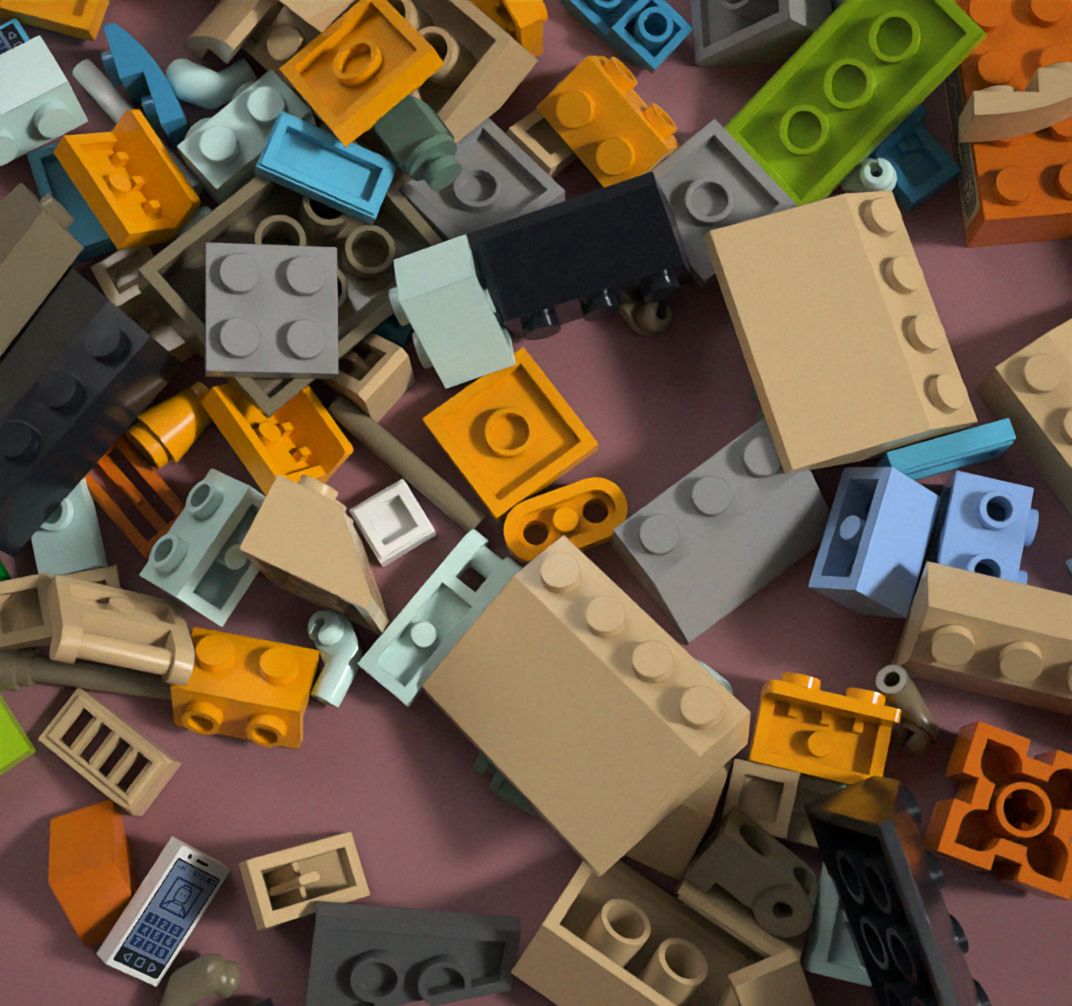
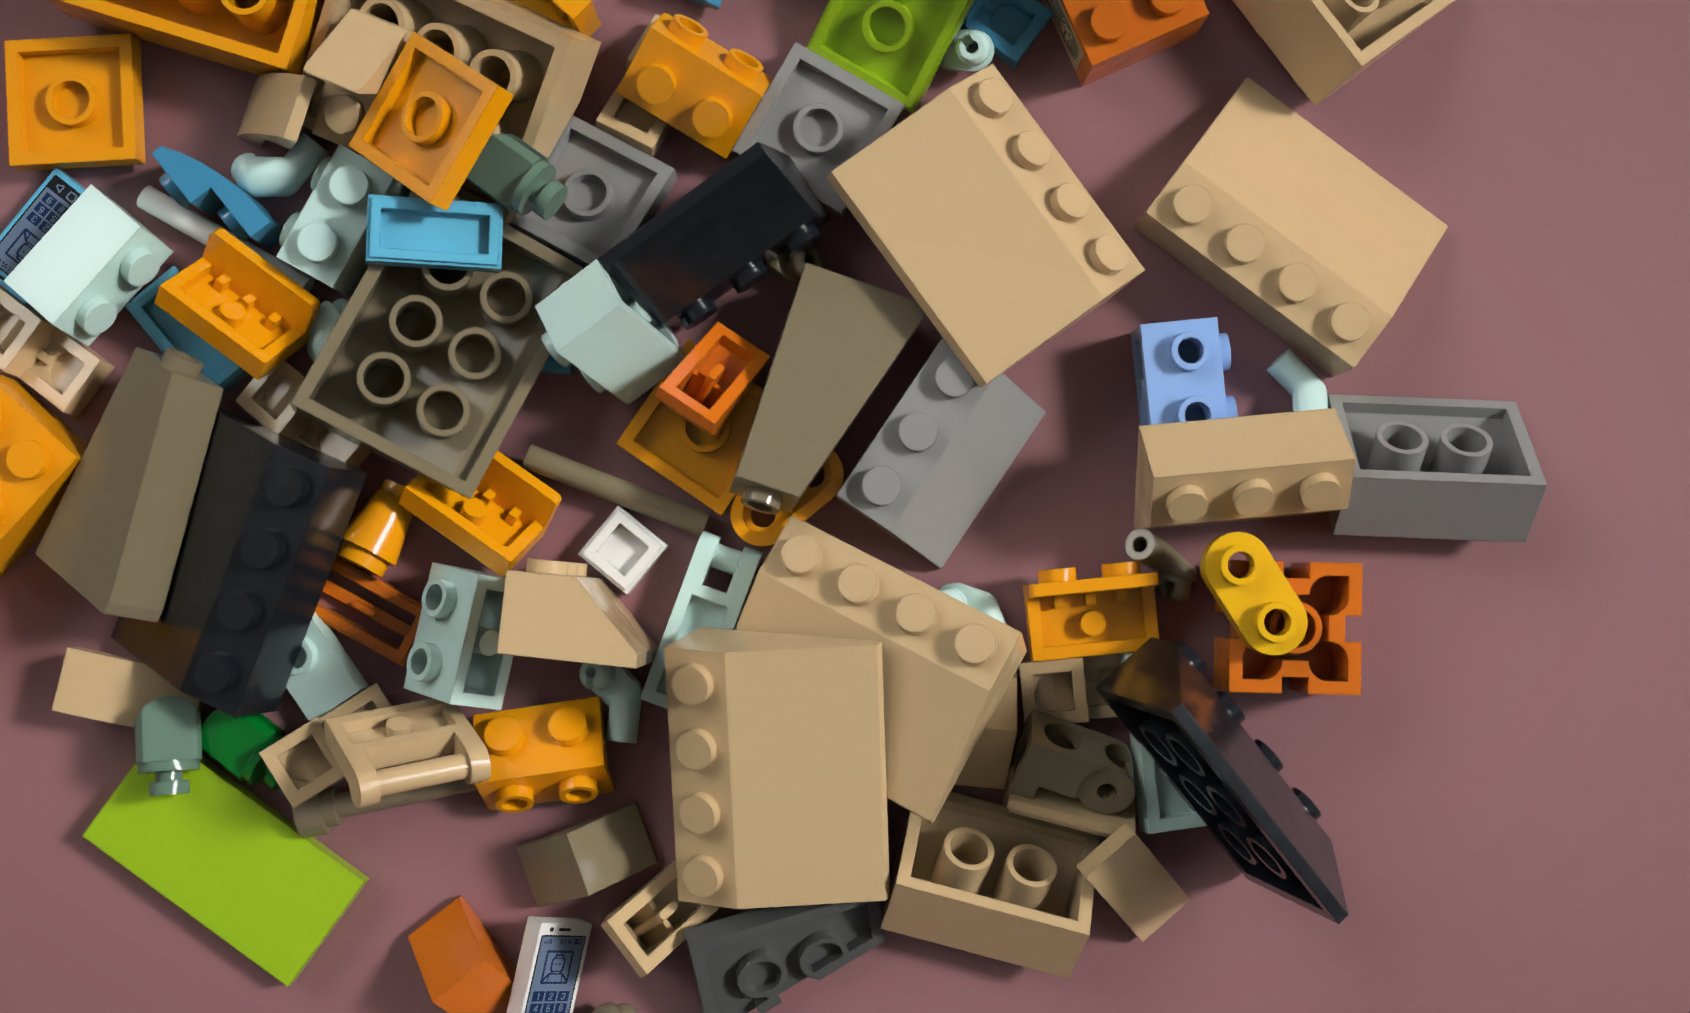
camera: 25 degrees left, 10 degrees up
(149, 781) = (487, 873): tan slope -> none
(251, 800) = (587, 856): none -> dark tan slope
(271, 311) = (434, 397): light grey plate -> none
(373, 375) = (552, 418): tan slope -> none
(465, 772) = (777, 769): none -> tan slope
(531, 388) = (713, 379): none -> orange slope
(636, 419) = (823, 372): none -> dark tan slope
(875, 541) = (1084, 417): light blue brick -> none
(951, 451) = (1124, 306): medium azure tile -> none
(986, 760) = (1253, 595): none -> yellow plate

